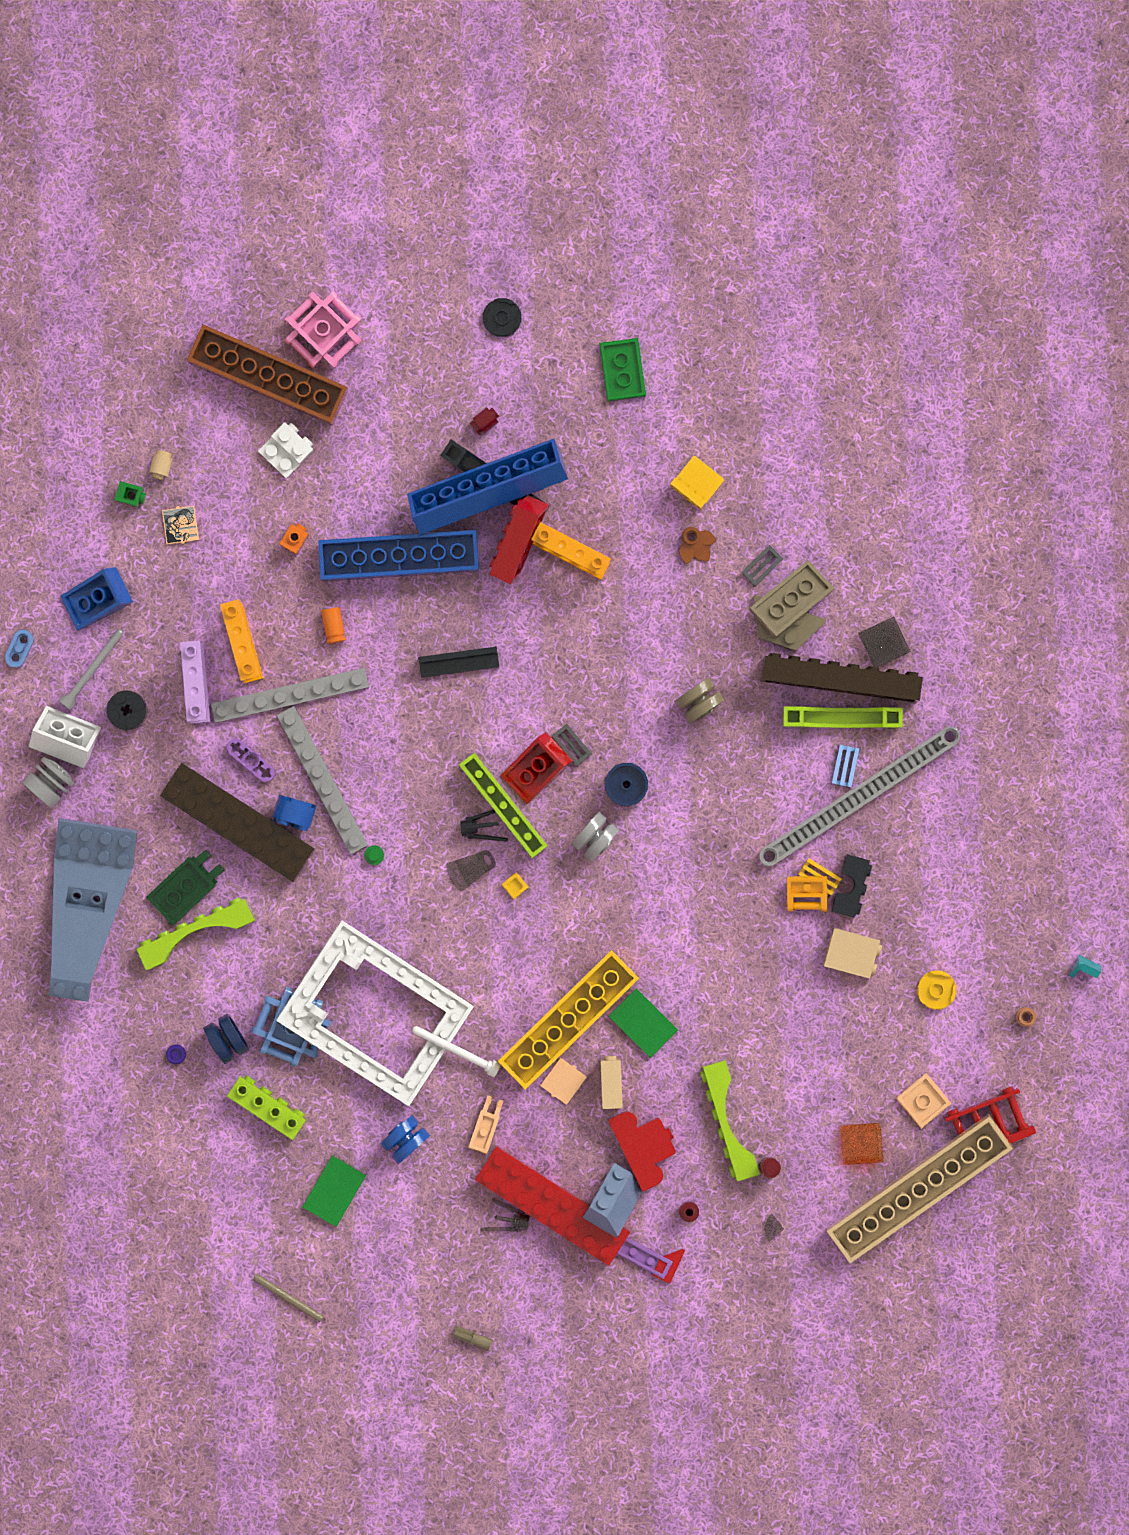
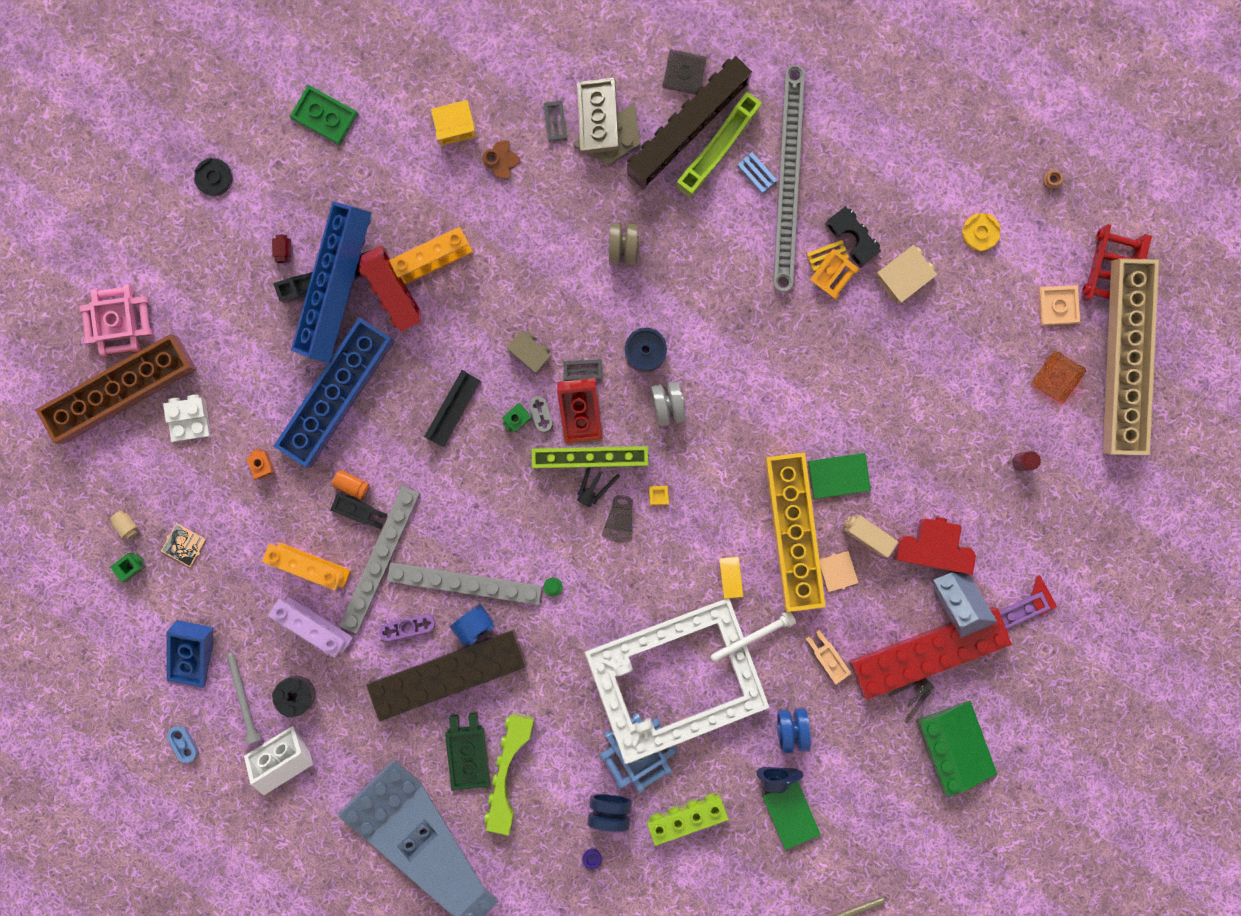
camera: 50 degrees left, 0 degrees up
(48, 782) = (302, 801): light grey wheel -> none
(315, 645) = (356, 510): none -> black hinge
(354, 1157) = (778, 779): none -> dark blue piece
(472, 1338) = (986, 792): dark tan axle -> none
(490, 720) = (516, 418): none -> green brick
(491, 1286) = (956, 748): none -> green slope
(492, 995) = (731, 577): none -> yellow slope
(505, 734) = (536, 416): none -> light grey beam
(552, 690) = (529, 352): none -> dark tan brick
(688, 1205) = (1008, 550): dark red brick -> none
(718, 1081) = (928, 451): lime arch -> none
(772, 1227) = (1071, 494): clear smoke tile -> none
(1086, 966) = (1044, 106): teal tile -> none

